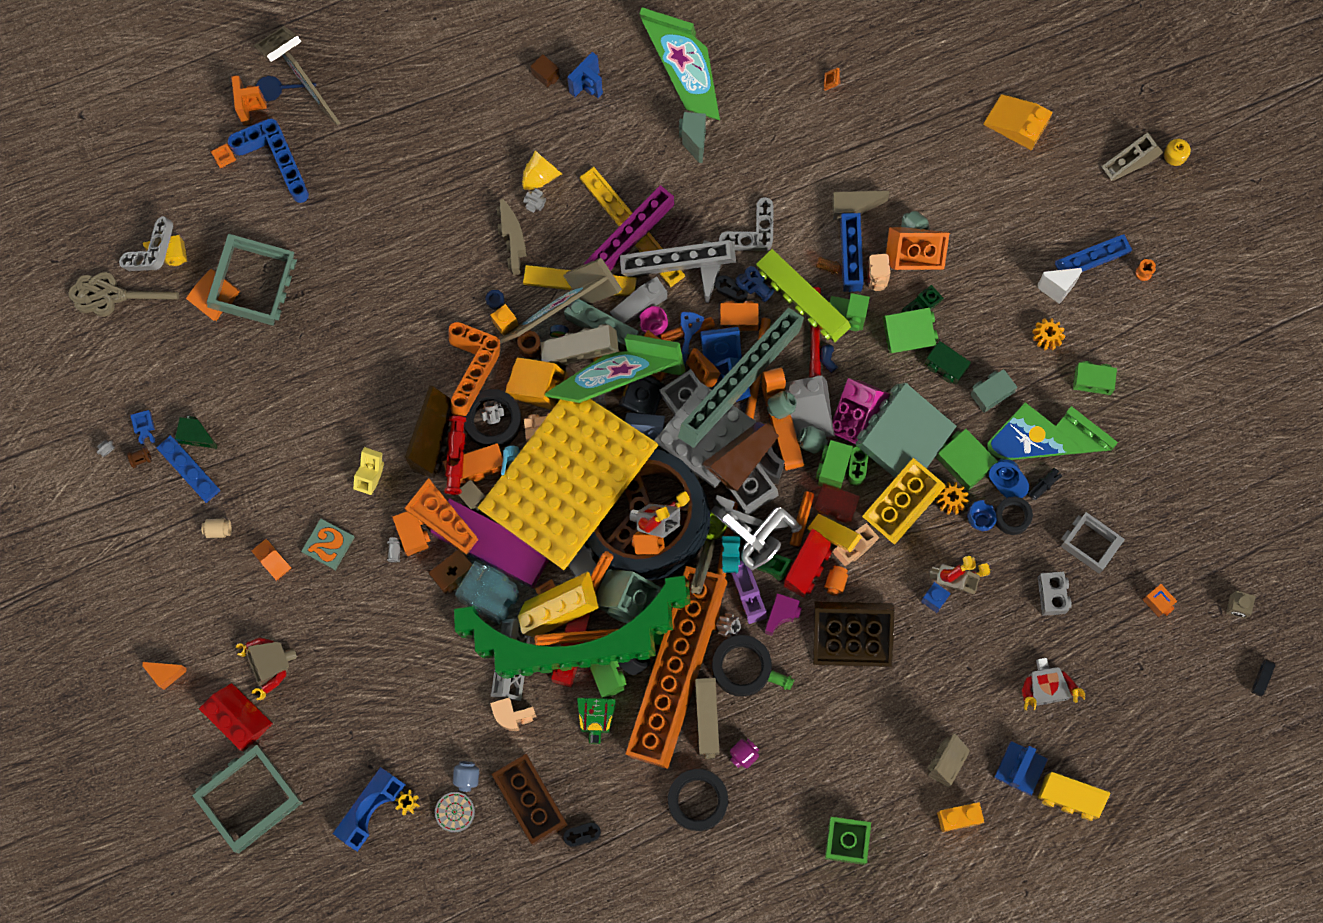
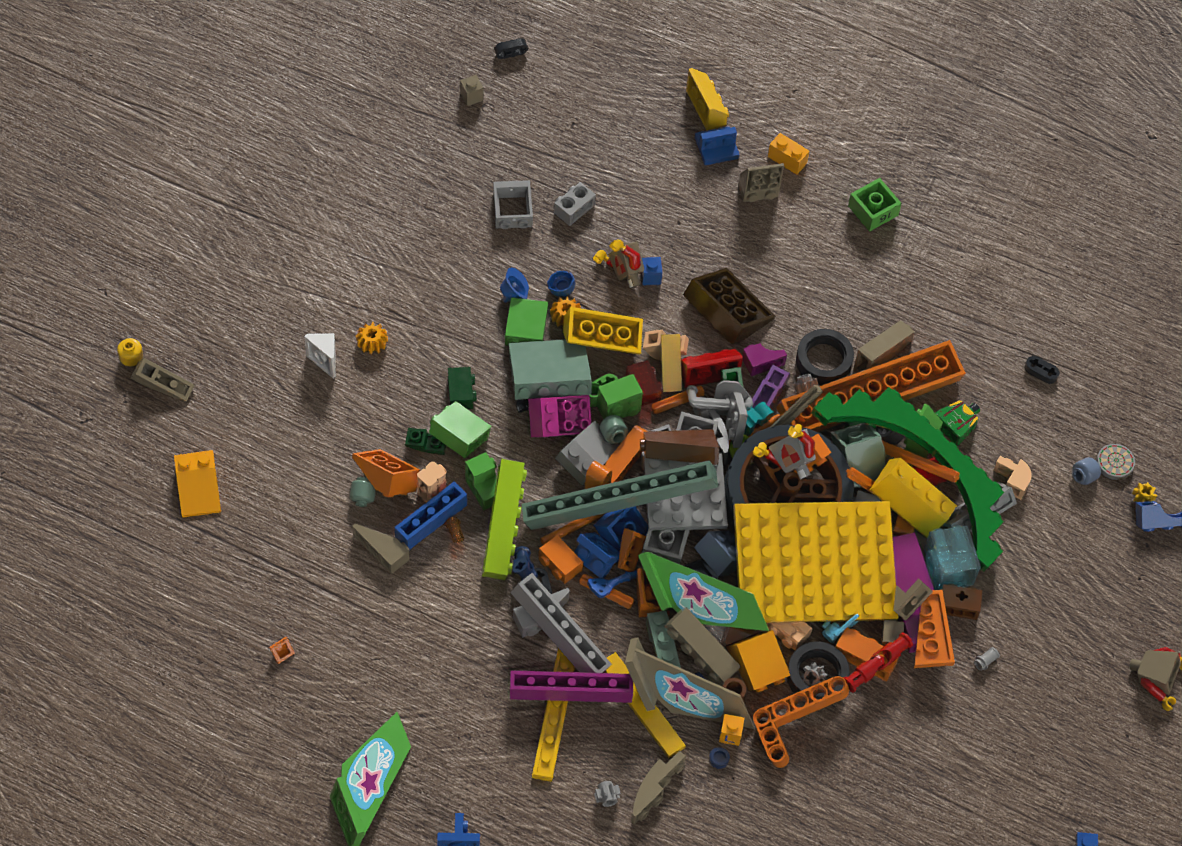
camera: 140 degrees left, 15 degrees down
(216, 528) = (1107, 803): tan brick -> none
(271, 559) = (1085, 745): orange slope -> none
(328, 544) = (1032, 712): sand green tile -> none
(369, 471) = (951, 726): light yellow brick -> none
(411, 533) = (965, 651): orange brick -> none
(430, 434) = (878, 700): dark brown slope -> none
(480, 520) = (908, 602): none -> dark tan slope
(529, 799) = (1058, 414): reddish brown brick -> none
(538, 172) = (580, 806): yellow helmet -> none
(645, 296) = (613, 639): light grey slope -> none
(654, 320) = (625, 616): dark pink hair -> none
(692, 131) = (433, 709): sand green slope -> none
(697, 775) = (948, 296): black tyre -> none
(744, 753) = (883, 308): magenta head -> none
(755, 237) = (478, 602): light grey beam -> none
(781, 404) = (612, 460): sand green head -> none
(781, 680) = (807, 323): bright green pin -> none
(815, 364) = (545, 481): red piece -> none
(825, 357) = (535, 475): dark blue arm -> none
(836, 580) = (702, 342): orange brick -> none
(993, 390) = (455, 340): sand green brick -> none
(1018, 502) = (539, 254): black tyre -> none
(1033, 436) = (463, 290): piece -> none
(1044, 484) = (495, 263): black axle -> none
(1049, 686) = (645, 162): torso -> none
(1095, 378) = (380, 285): bright green brick -> none
(1096, 254) = (275, 352): blue plate -> none
(1145, 264) = (253, 309): orange bush -> none
(1160, 601) = (515, 138): orange brick -> none

